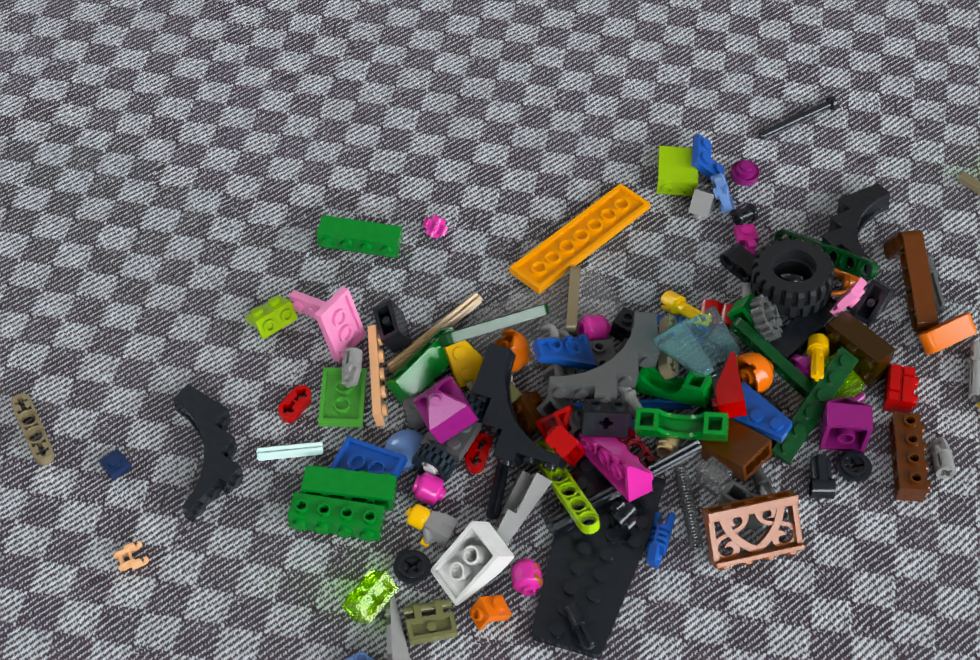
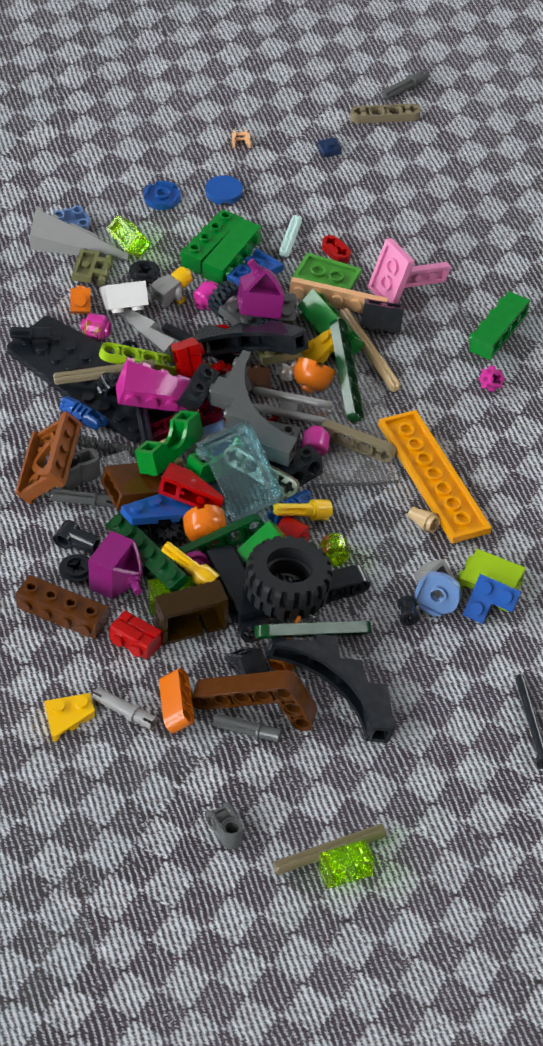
camera: 110 degrees right, 5 degrees down
(218, 470) = (314, 196): black arch -> none
(233, 541) = (223, 189): none -> blue tile
(267, 602) = (162, 195): none -> blue tile
(272, 316) = (435, 251): lime bracket -> none
(351, 366) = (348, 276): light grey hinge -> none
(565, 352) = (286, 397): blue wing -> none
(608, 529) = (92, 373): none -> dark tan axle
(635, 231) = (426, 520): none -> tan cone
(708, 281) = (336, 548): none -> clear neon green head
(744, 173) = (466, 635): magenta plate -> none
(746, 236) = (381, 604): dark pink plate -> none
(766, 317) = (240, 532): dark grey gear -> none
(850, 297) = (236, 603): bright pink plate -> none
(942, 458) = (46, 633): light grey hinge -> none

